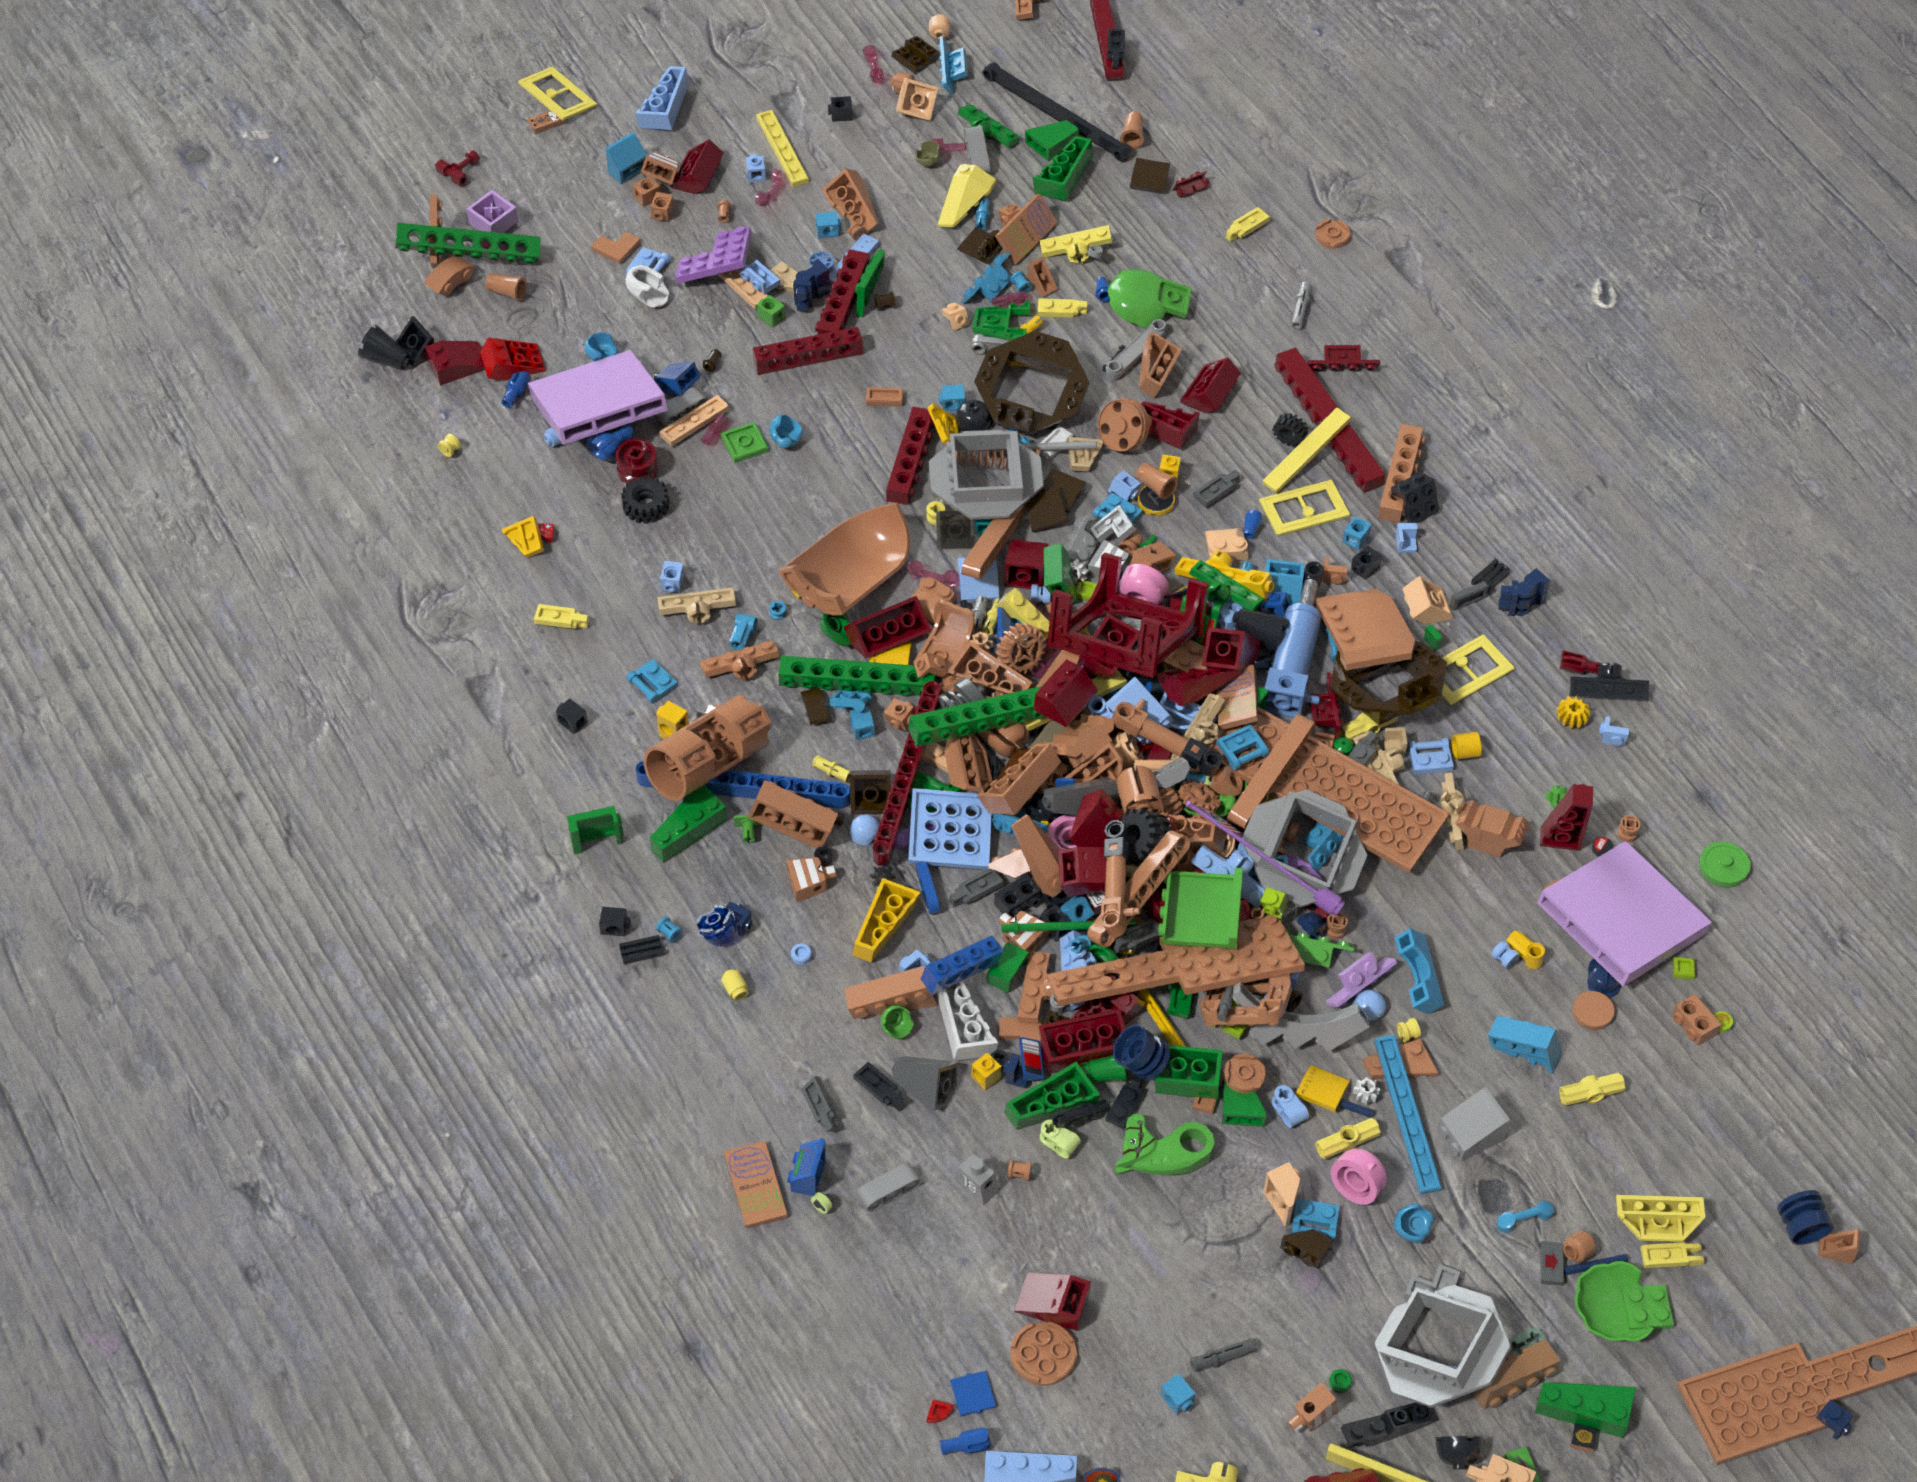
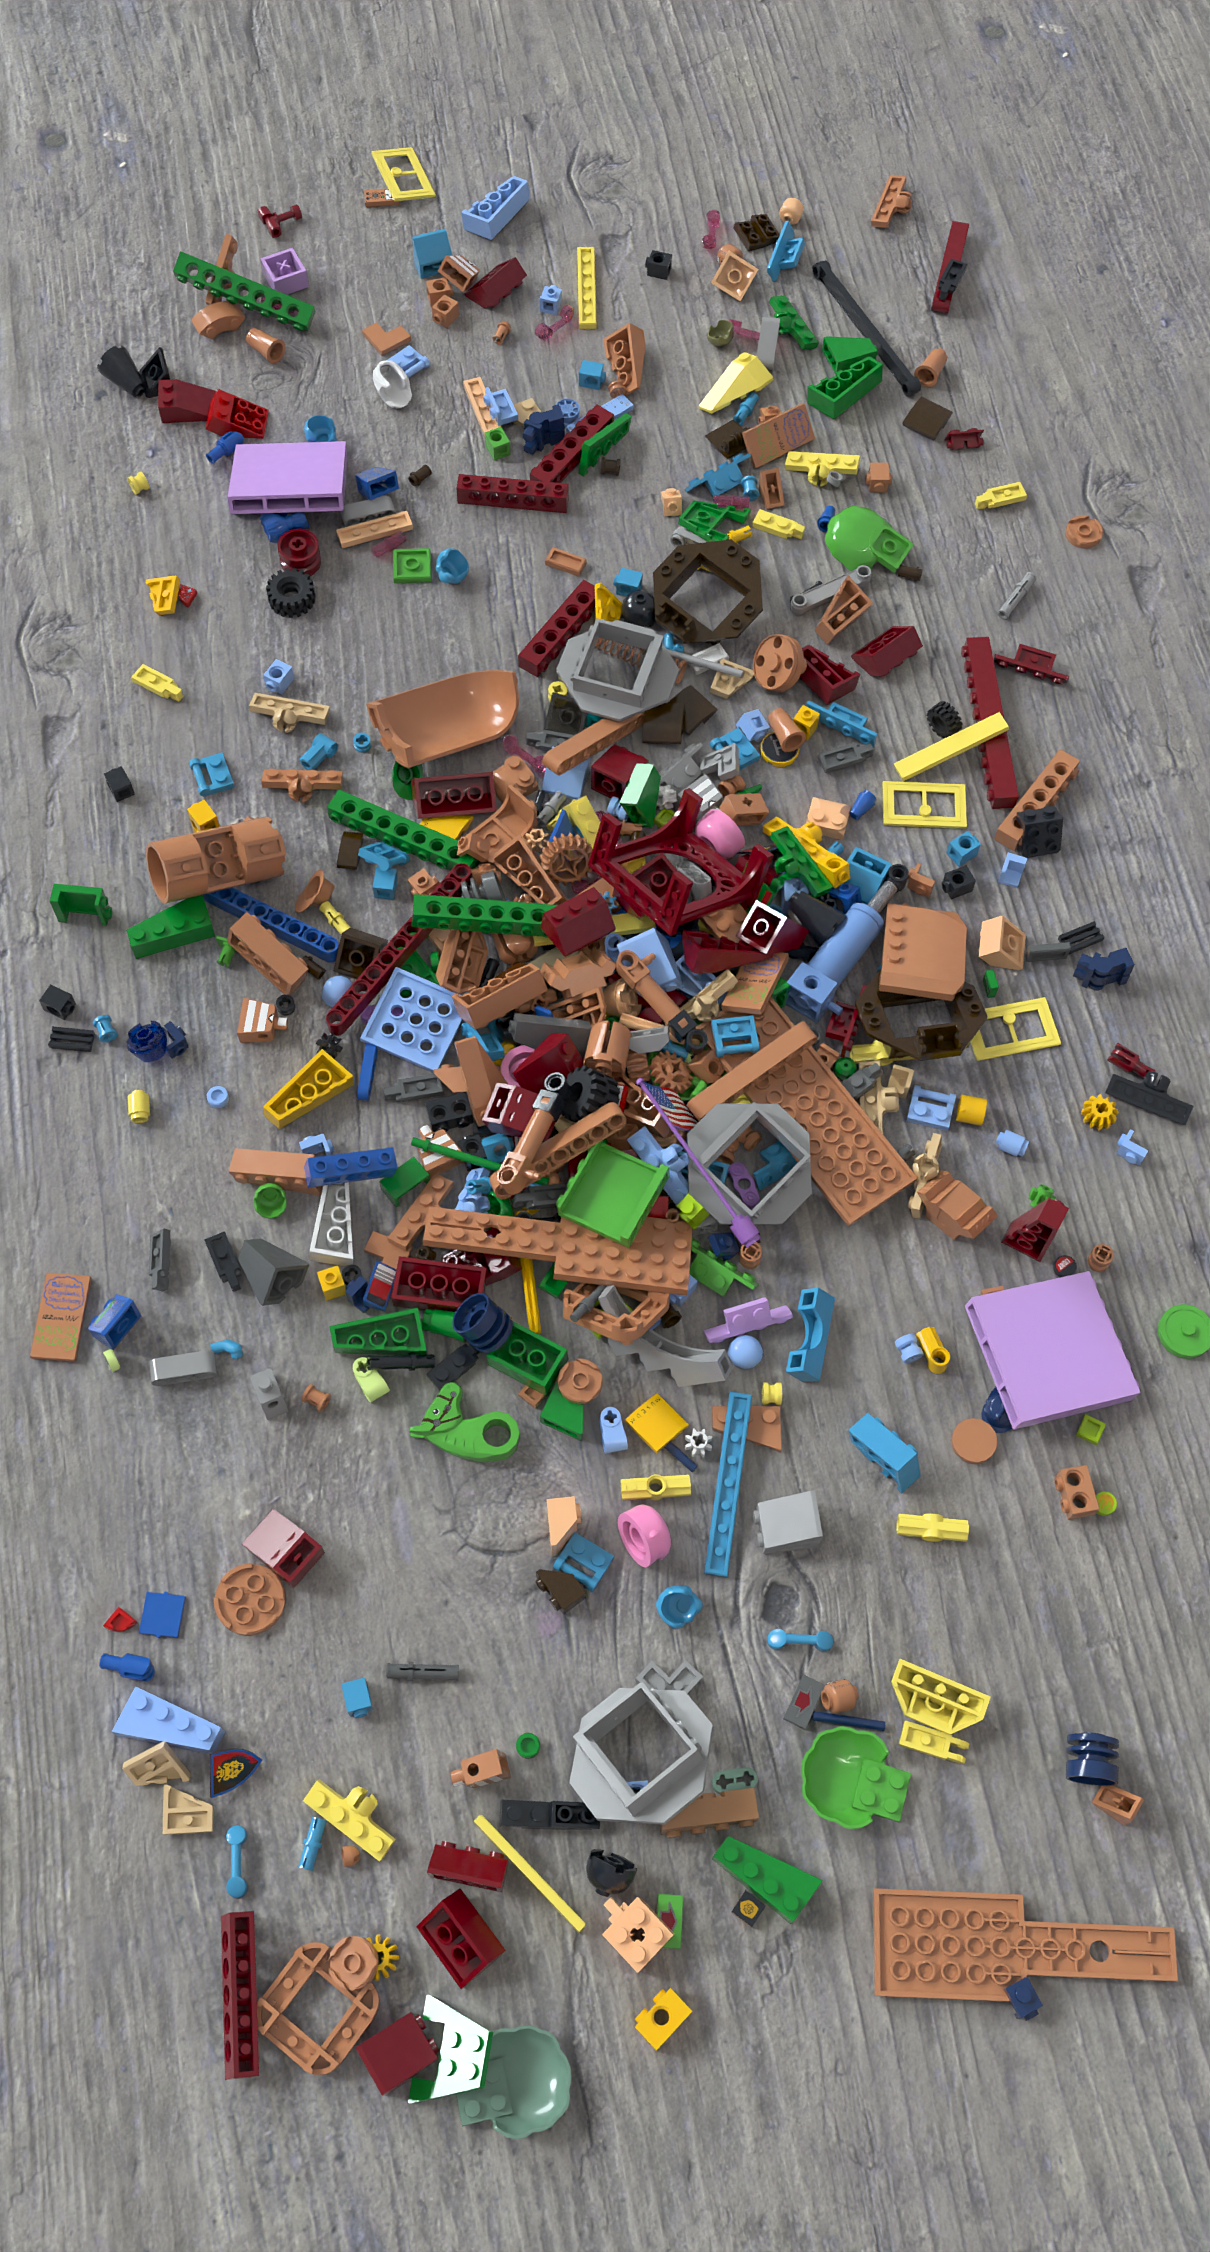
camera: 20 degrees right, 10 degrees up
(728, 254) = (477, 378): medium lavender plate -> none
(802, 751) = (315, 893): none -> nougat piece
(919, 1155) = (228, 1345): none -> dark azure arm
(941, 775) = (435, 958): none -> green tile
(948, 555) = (546, 739): none -> dark grey hinge
(1131, 239) = (878, 477): none -> nougat brick
(1201, 313) = (910, 572): none -> dark brown pin
(1204, 458) = (845, 721): none -> dark azure bracket
(1512, 761) = (1012, 1143): none -> light blue brick

